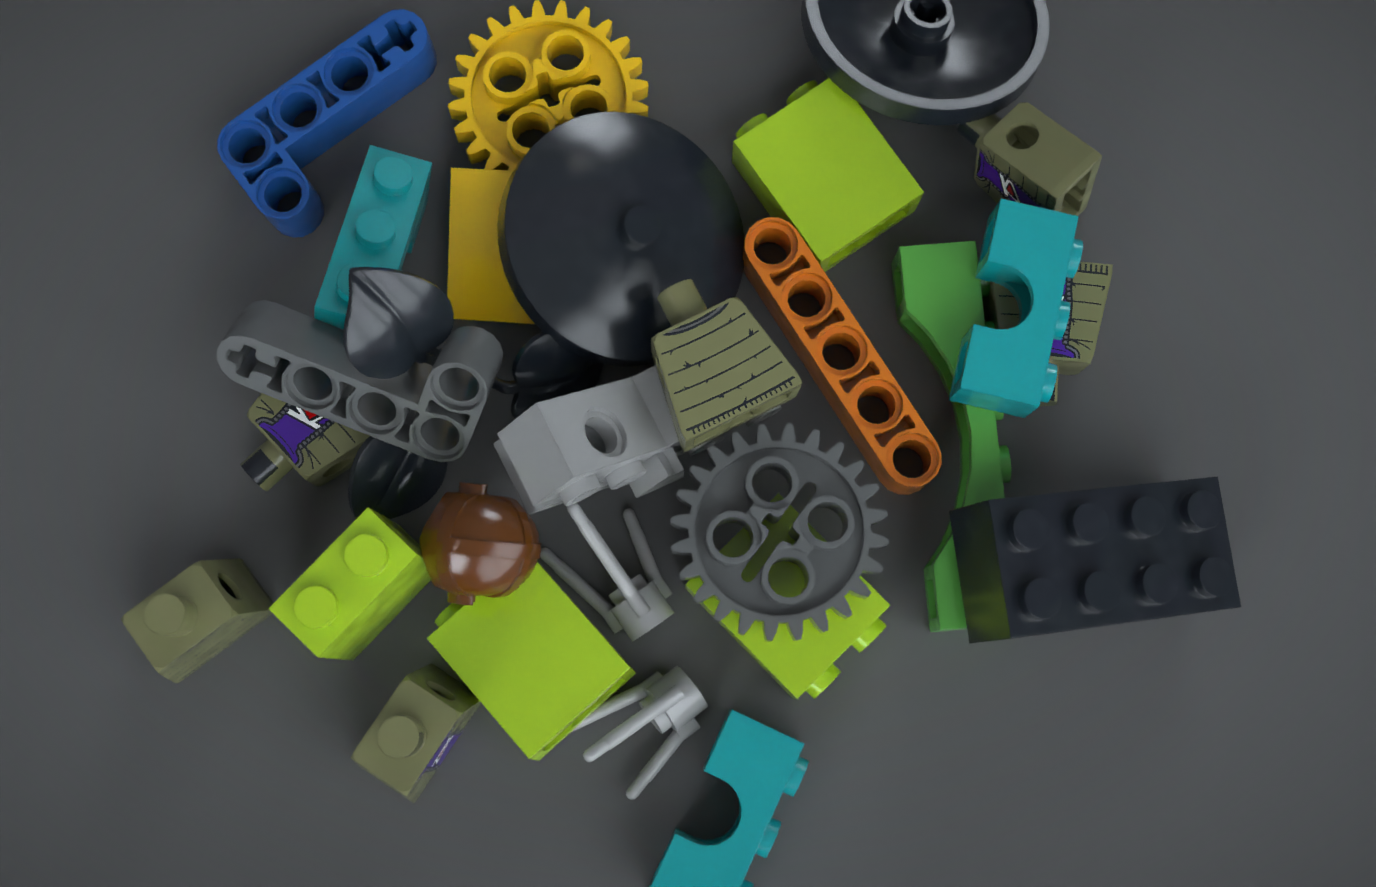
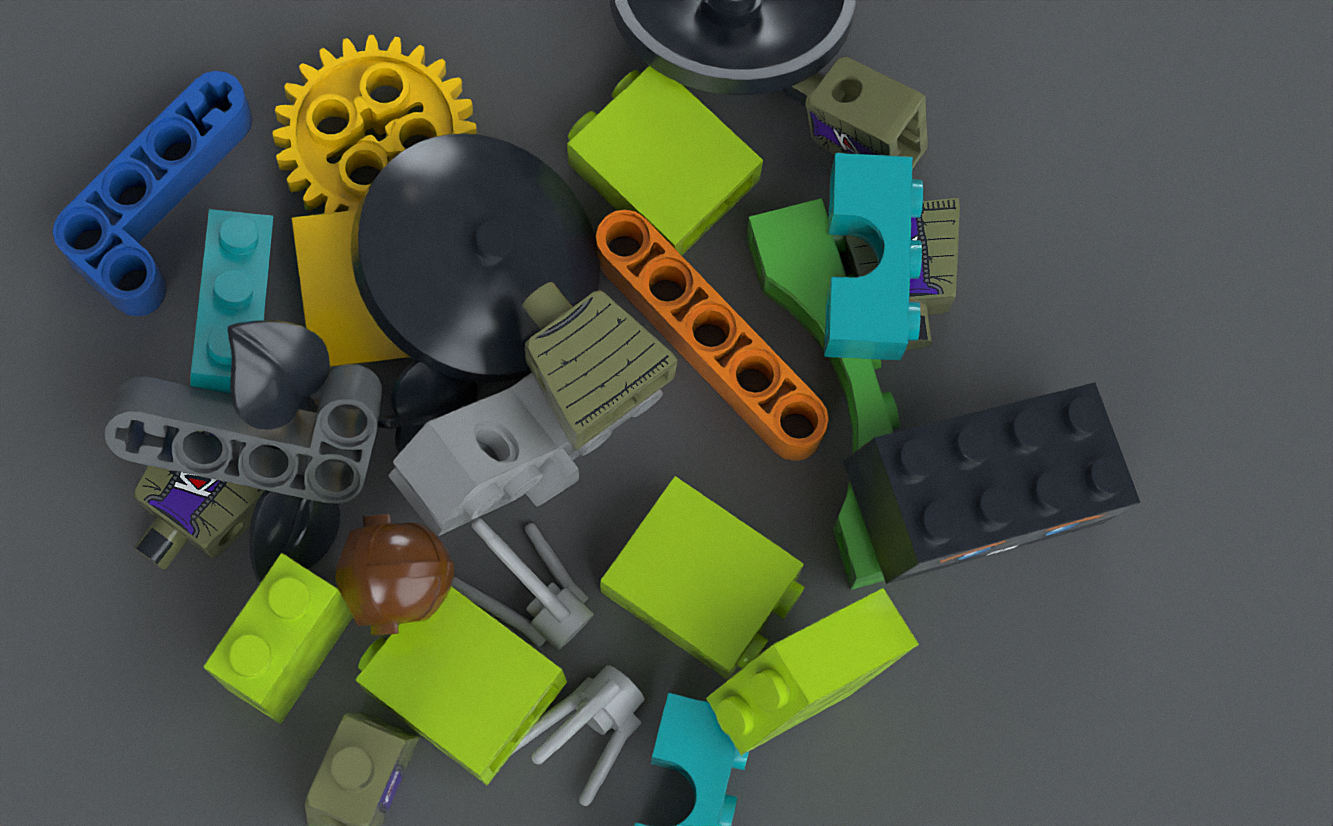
camera: 15 degrees left, 5 degrees down
(196, 617) = (118, 705): olive torso -> none
(828, 567) = (734, 533): dark grey gear -> none
(880, 721) = (811, 671): none -> lime brick

